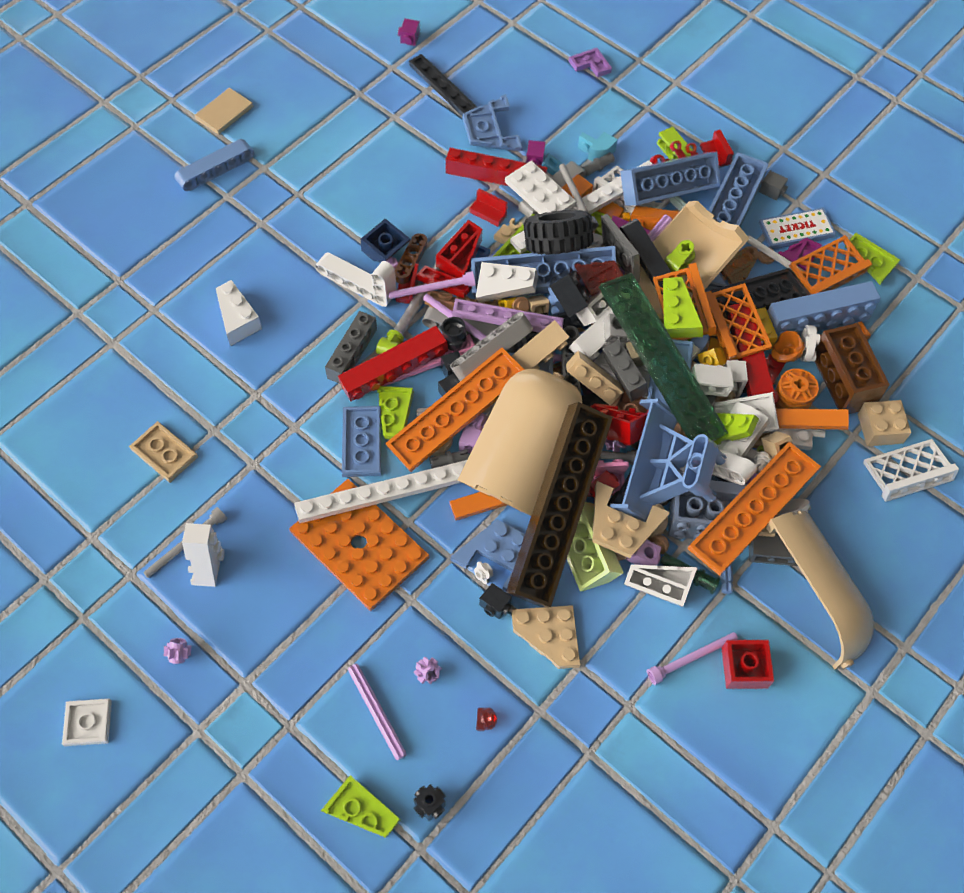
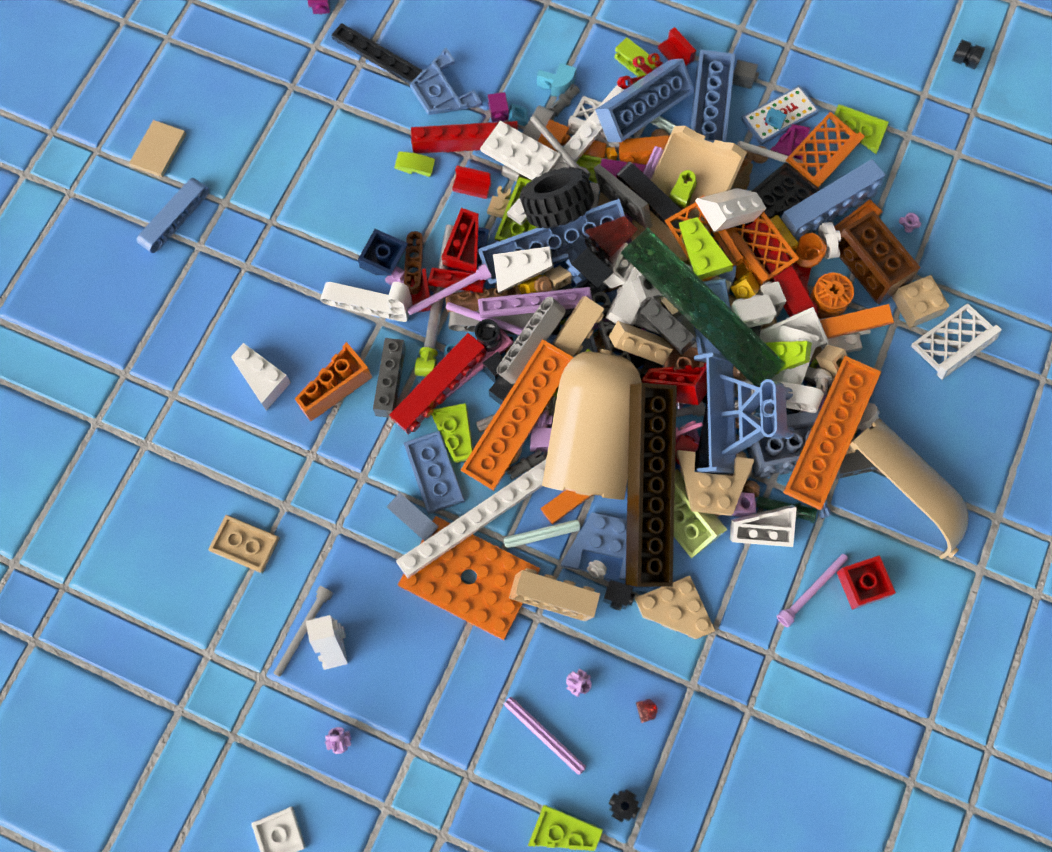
camera: 15 degrees left, 10 degrees up
(298, 337) = (333, 383): none -> orange wedge
(325, 471) = (412, 517): none -> sand blue beam
(431, 578) = (554, 595): none -> tan brick
(442, 525) = (541, 534): none -> light aqua axle
(444, 179) = (413, 162): none -> lime slope
(718, 281) = (730, 208): none -> white slope
(790, 227) = (775, 118): none -> dark azure plate
(898, 348) = (910, 217): none -> lavender plate

